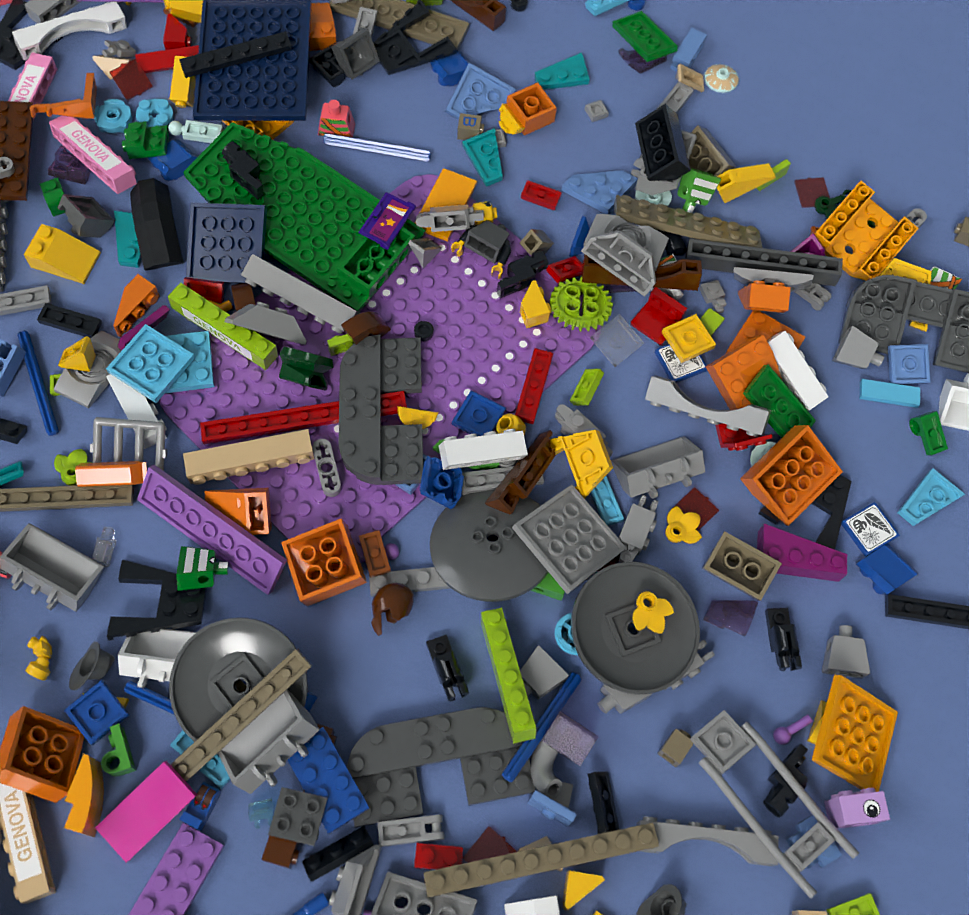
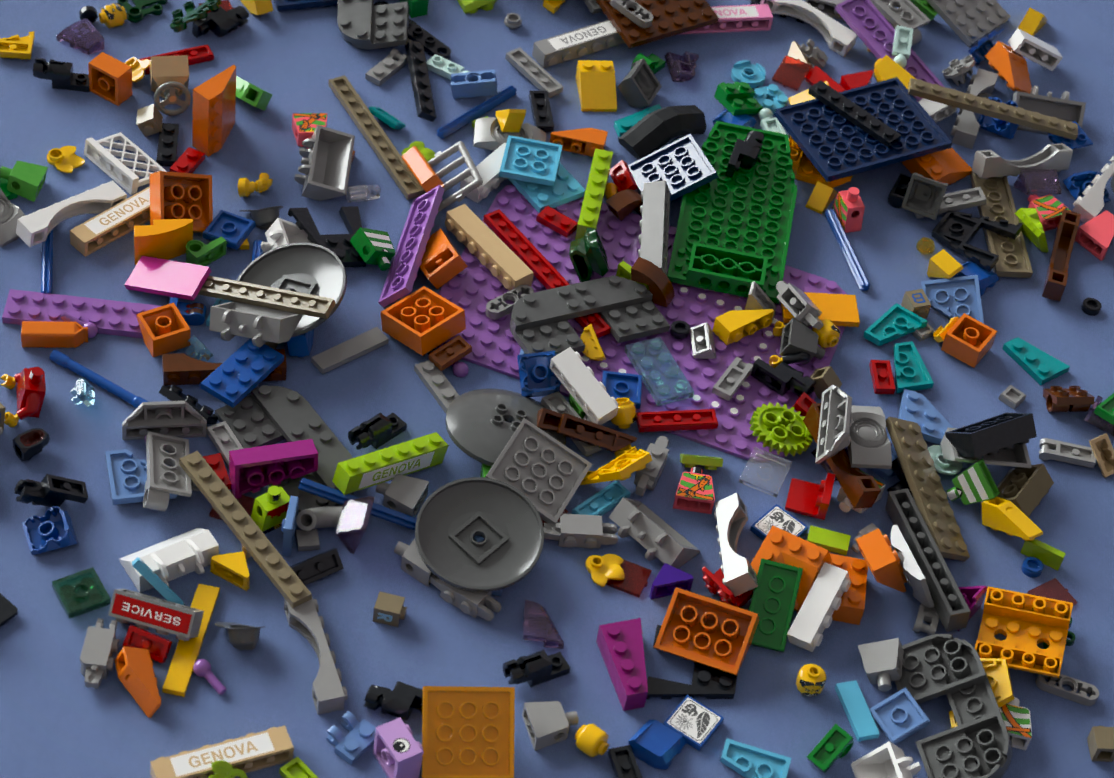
camera: 65 degrees right, 20 degrees down
(73, 108) = (739, 50): orange hinge -> none
(93, 153) = (700, 70): bright pink brick -> none
(152, 321) = (569, 154): magenta tile -> none
(222, 844) = (164, 329): none -> orange slope
(235, 375) = (557, 221): none -> red plate
(268, 321) = (611, 212): light grey wedge -> none
(297, 816) = (204, 358): dark grey hinge -> none
(304, 135) = (821, 197): none -> yellow slope
(322, 650) = (349, 350): none -> light grey tile
(391, 217) = (766, 261): door -> none
(395, 601) = (413, 373): reddish brown helmet -> none
(400, 85) = (925, 245): none -> clear yellow plate
(442, 83) = (943, 265): none -> yellow slope
(442, 282) = (740, 323): none -> yellow slope
(446, 319) = (702, 341): none -> light grey slope
(468, 372) = (659, 371): none -> clear light blue plate
(468, 797) = (270, 465): none -> magenta wedge
(504, 315) = (732, 379): none -> light grey plate
(520, 818) = (270, 509): none -> lime torso
(533, 306) = (754, 394): yellow slope -> none
(539, 169) = (910, 368): none -> teal wing
(619, 72) = (1067, 400): none -> reddish brown plate
(620, 409) = (695, 492): none -> torso
(653, 615) = (496, 539): yellow plate -> none
(688, 338) = (802, 520): yellow plate -> none
(717, 480) = (668, 579): none -> dark purple slope
(725, 744) = (405, 630): light grey plate -> none
(741, 566) = (584, 610): dark tan slope -> none
(779, 190) = (1032, 567): none -> blue tile
(858, 414) = (810, 680): none -> yellow head
(876, 624) = (591, 740): none -> yellow head

